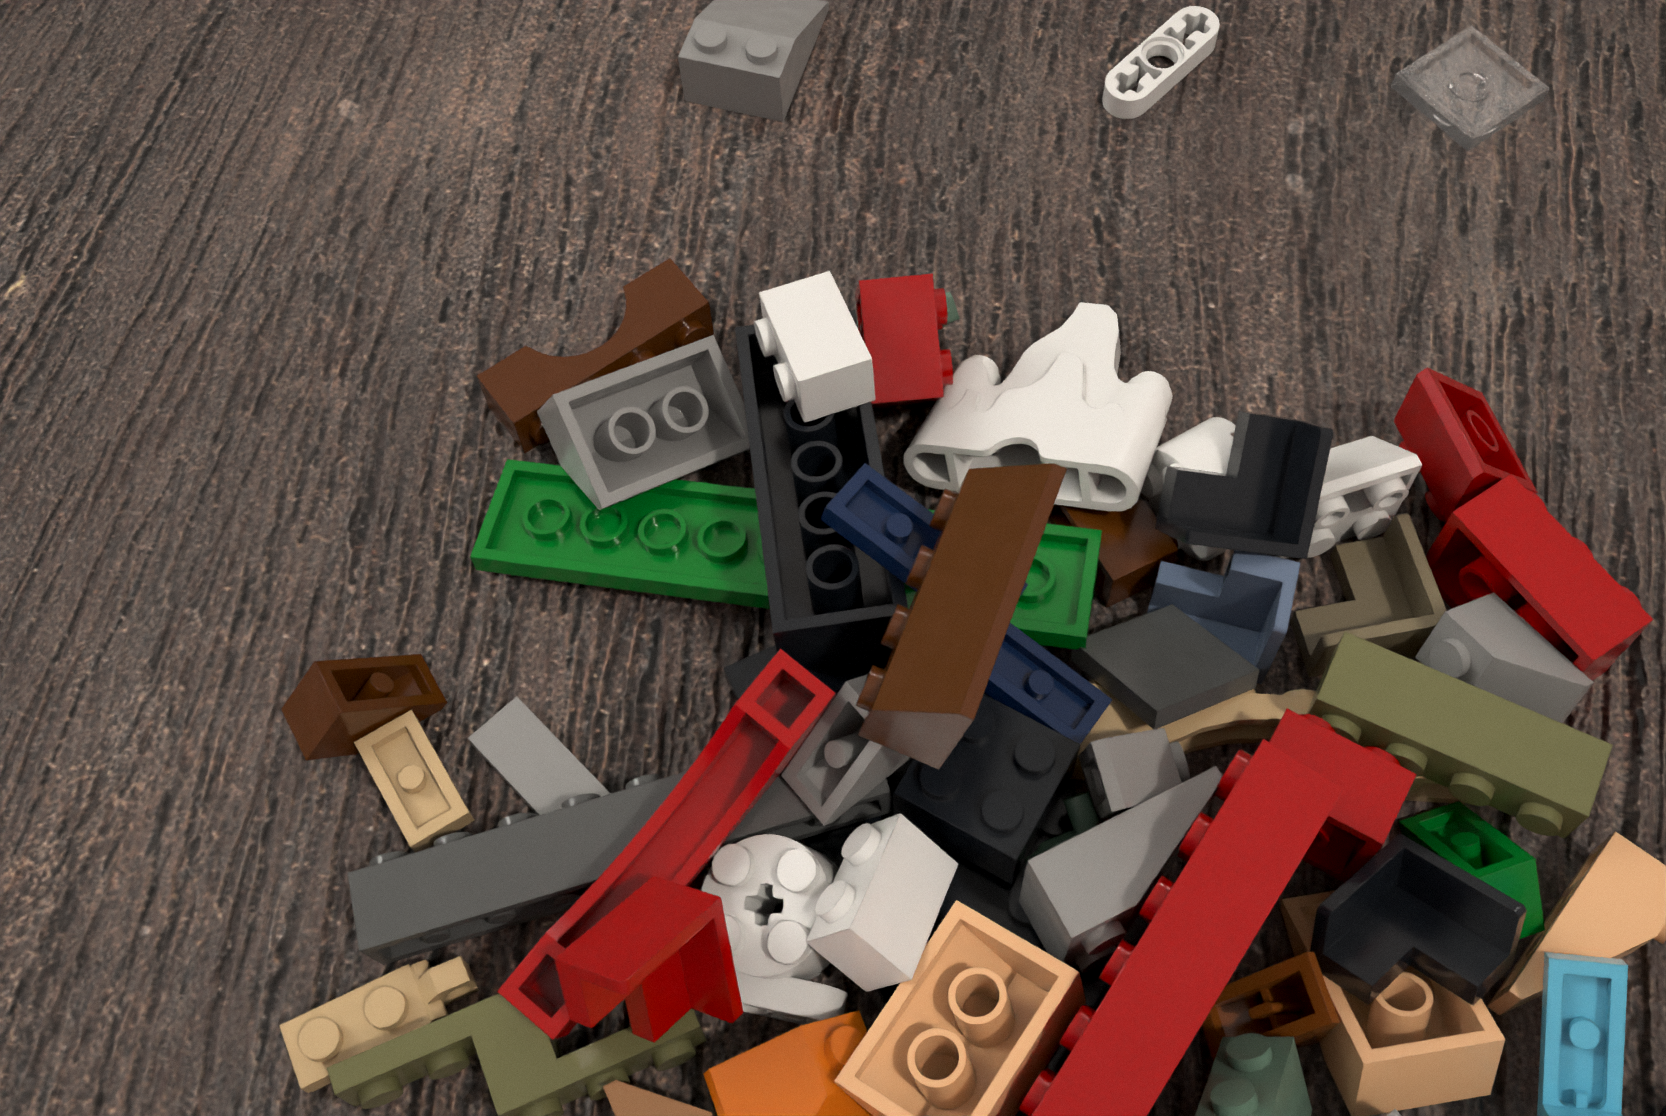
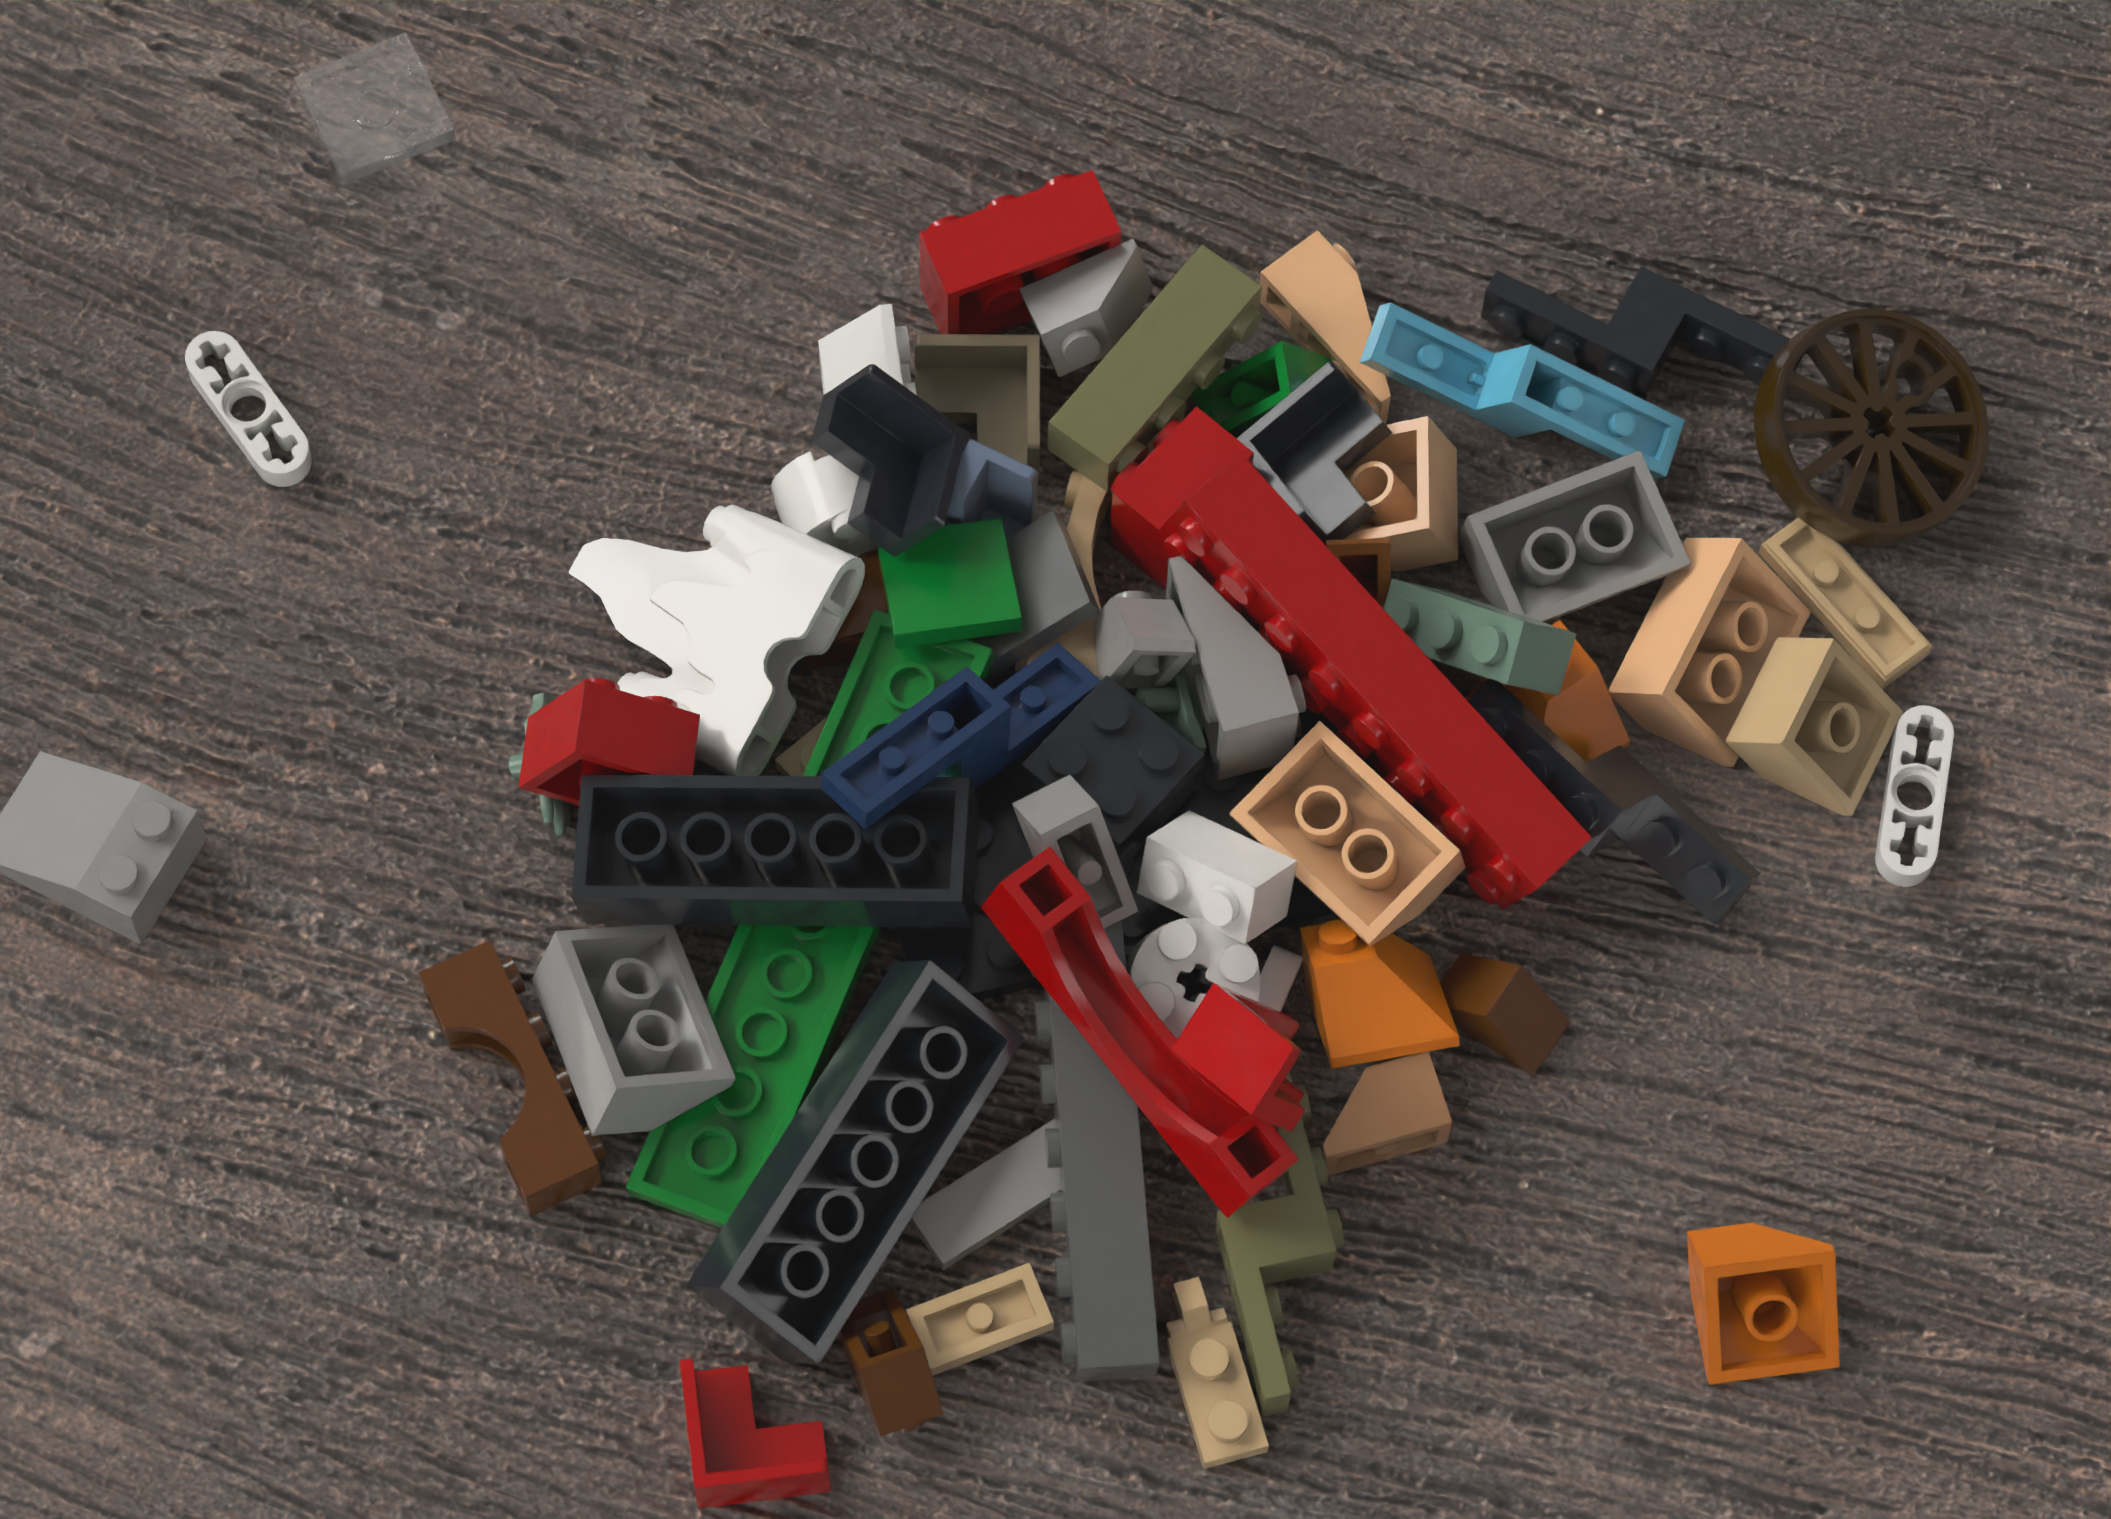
camera: 85 degrees left, 5 degrees up
(270, 588) = (736, 1460): none -> red panel
(539, 629) = (855, 1162): none -> black brick
(816, 347) = (643, 809): white brick -> none
(960, 610) = (1012, 706): reddish brown slope -> none
(1145, 589) = (952, 586): none -> green tile
(1456, 441) = (855, 267): red slope -> none

